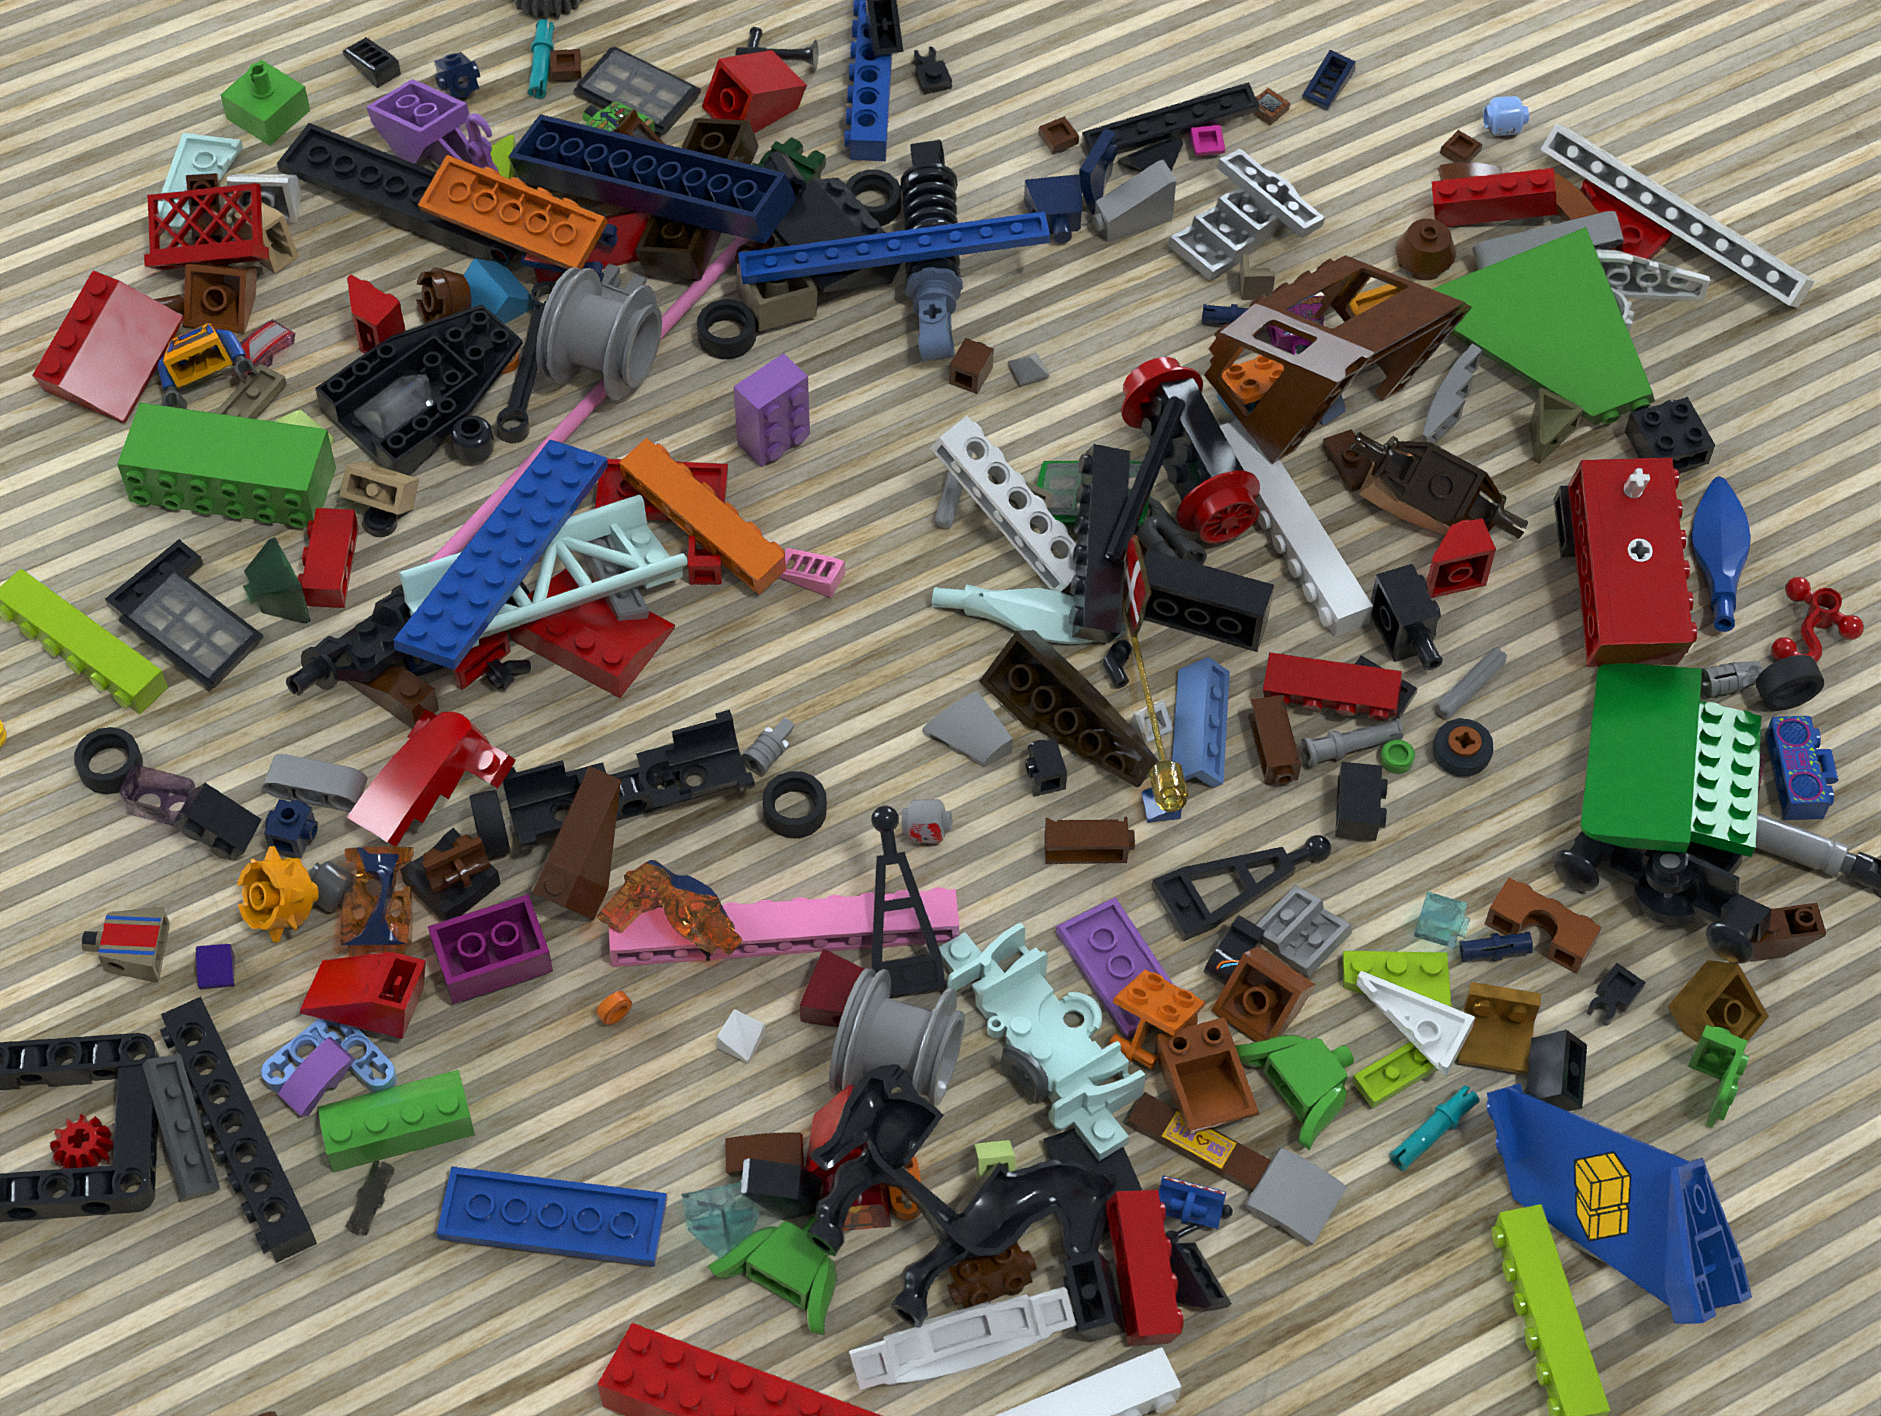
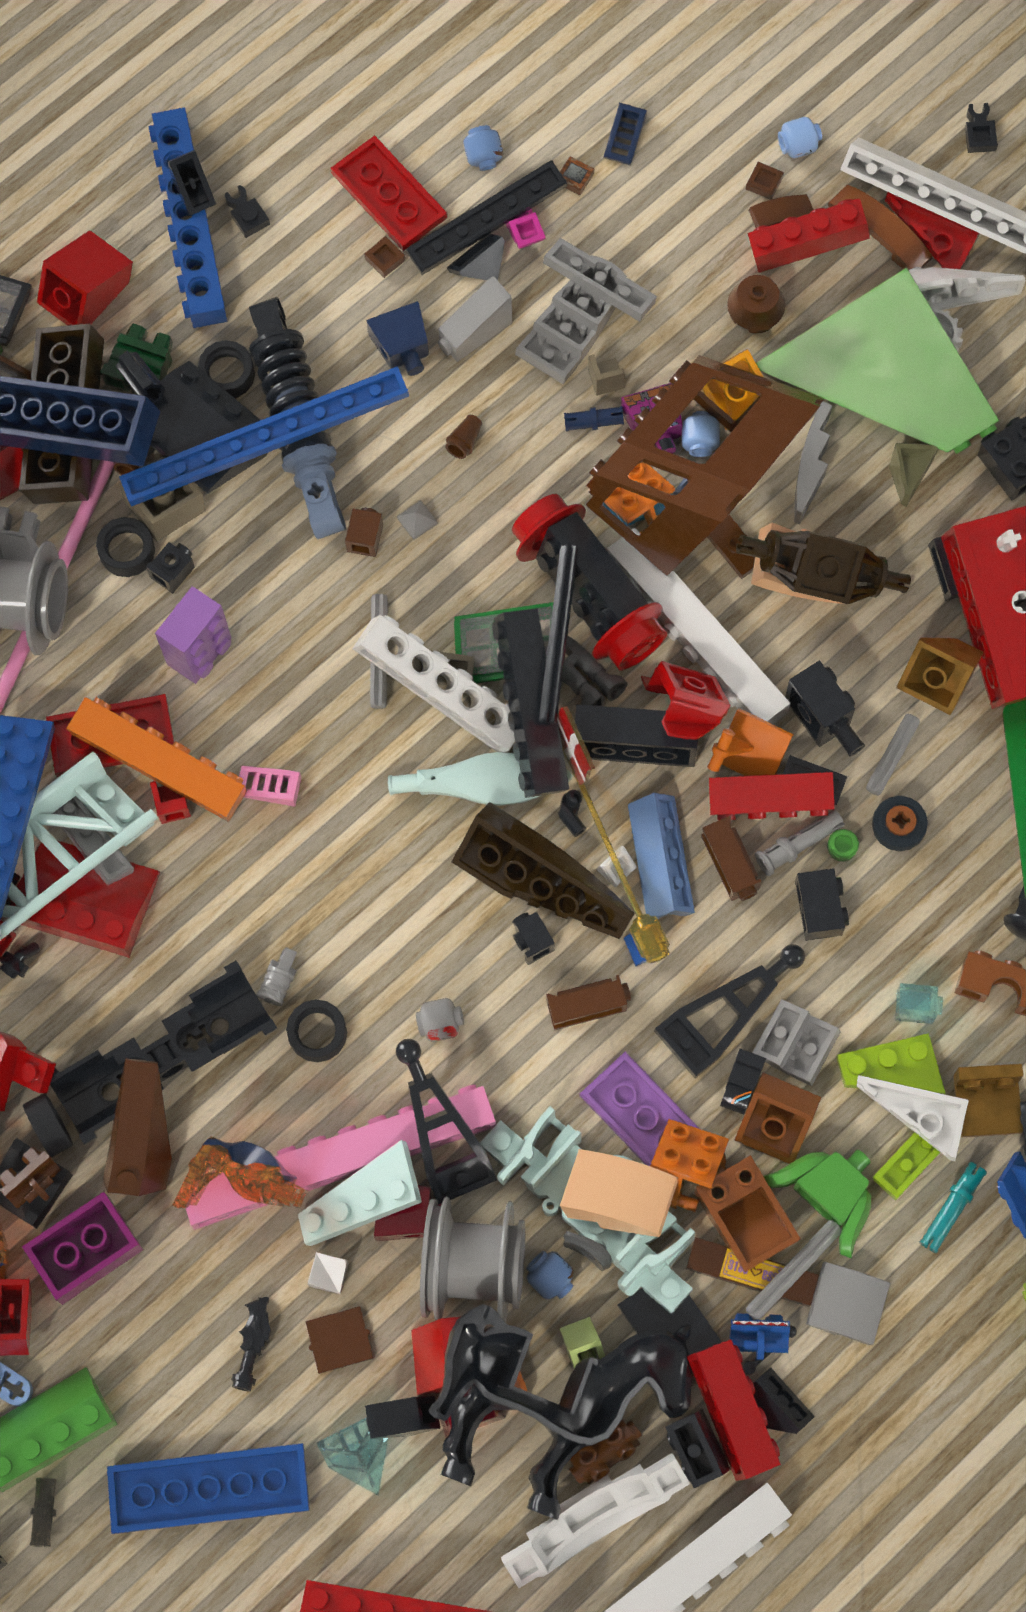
camera: 10 degrees left, 15 degrees up
(614, 1008) = (208, 1275): orange tile -> none
(646, 1080) = (254, 1334): none -> black piece
(734, 1107) = (339, 1340): none -> reddish brown piece
(764, 350) = (171, 575): none -> black brick
(773, 1147) = (378, 1382): reddish brown slope -> none
(788, 1266) = (417, 1481): bright green torso -> none
(803, 965) = (368, 1195): none -> light aqua wing
(808, 54) = (69, 232): black piece -> none
(971, 730) = (457, 915): light grey slope -> none
(978, 1091) = (550, 1275): none -> medium blue head
(1071, 1019) = (618, 1193): none -> light nougat slope
(1077, 82) = (389, 193): none -> red plate
(1094, 306) = (463, 437): none -> reddish brown cone
(1098, 168) = (431, 294): dark blue plate -> none
(1182, 62) = (483, 147): none -> medium blue head
(1244, 1145) = (793, 1270): none -> light grey axle
(1264, 571) = (695, 700): none -> red piece
(1319, 632) = (750, 746): none -> orange plate
(1461, 559) = (861, 635): red slope -> none
(1519, 944) = (970, 1017): dark blue pin -> none
(1538, 608) = (939, 671): none -> pearl gold slope
(1602, 228) = (868, 273): light grey beam -> none
(1693, 149) = (980, 133): none -> black plate

